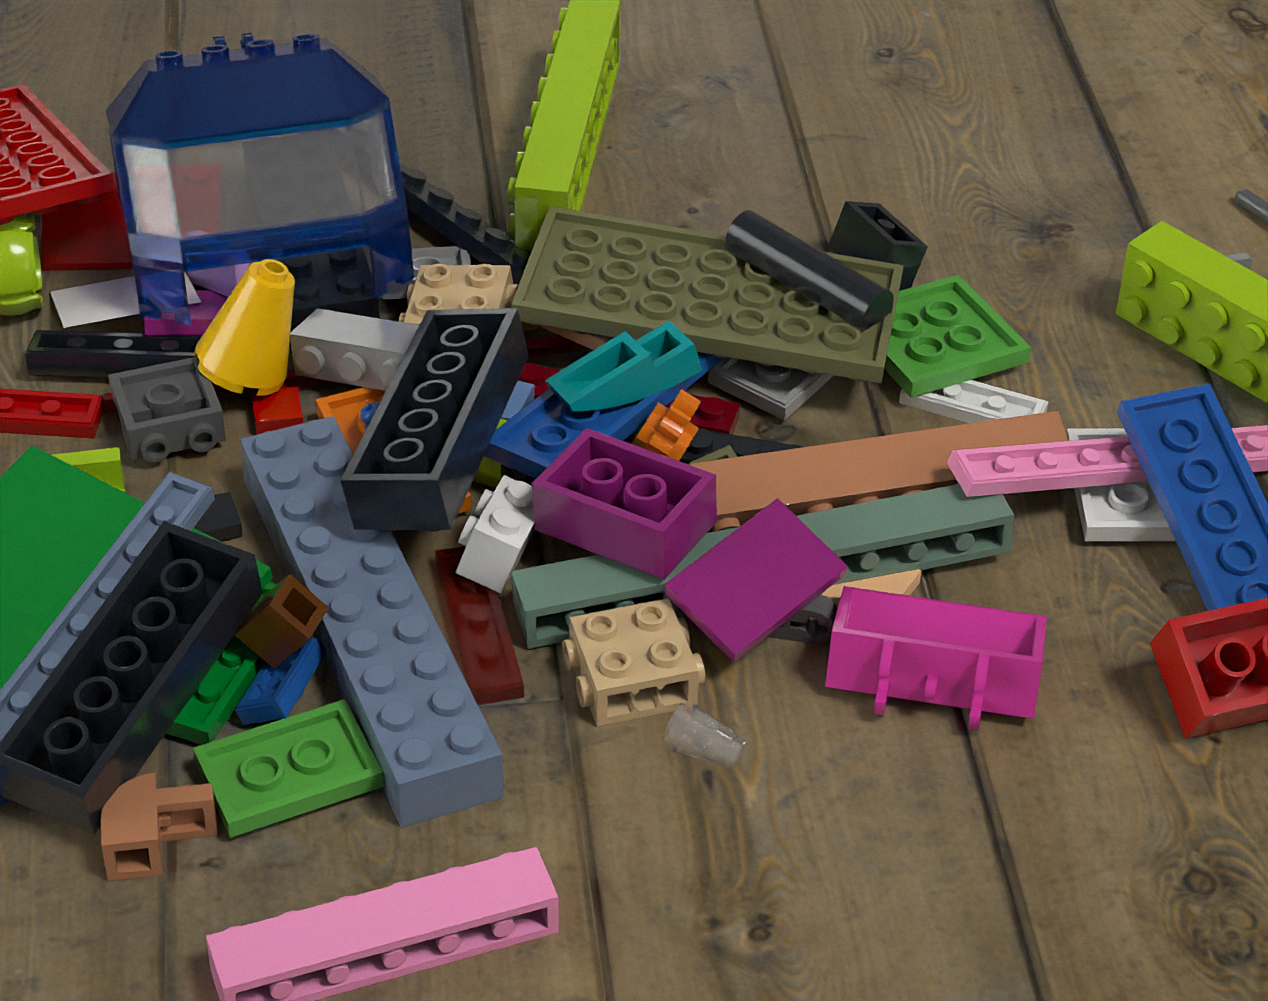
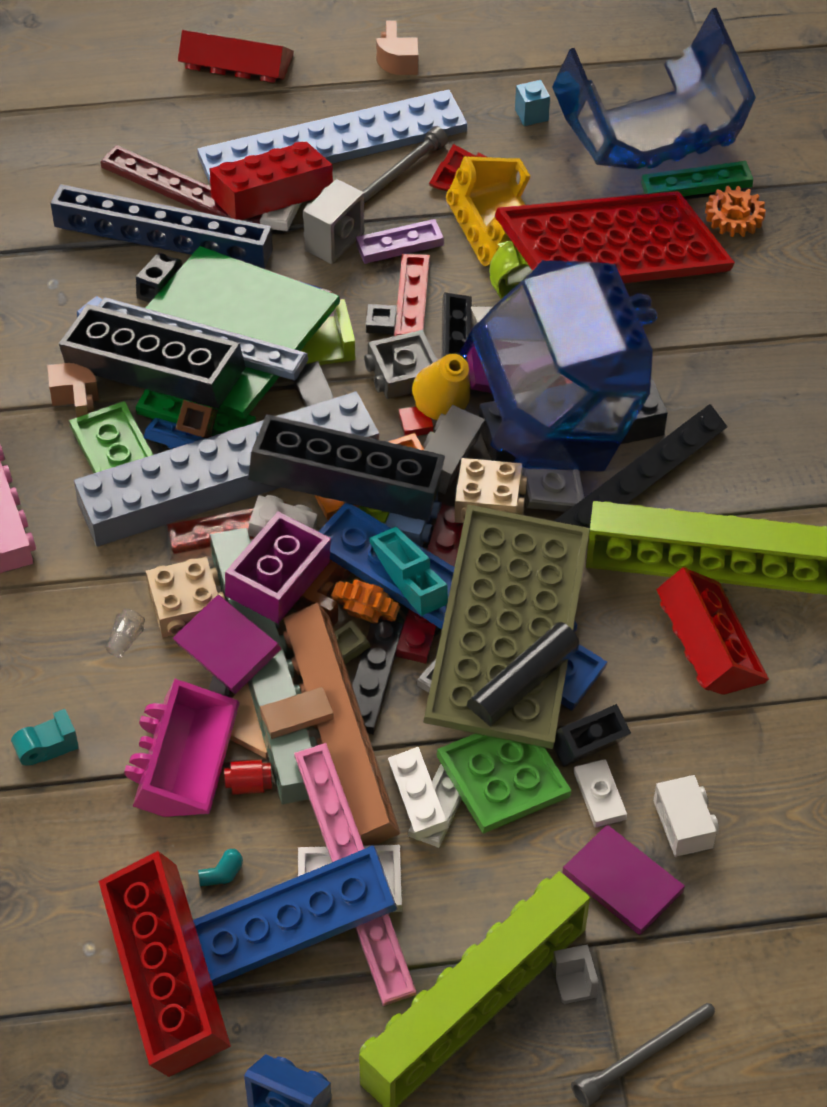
camera: 90 degrees right, 10 degrees up
(54, 433) = (381, 319): none -> plate
(696, 148) = (710, 633): none -> red slope
(889, 494) = (296, 712): none -> medium nougat tile
(922, 822) = (45, 740): none -> teal leg
(964, 257) = (600, 793): none -> white plate
(971, 577) = (248, 777): none -> red brick
(988, 181) = (685, 815): none -> white brick
(993, 401) = (418, 793): none -> white plate
(1071, 250) = (623, 879): none -> magenta tile
(1133, 616) = (224, 871): none -> teal arm

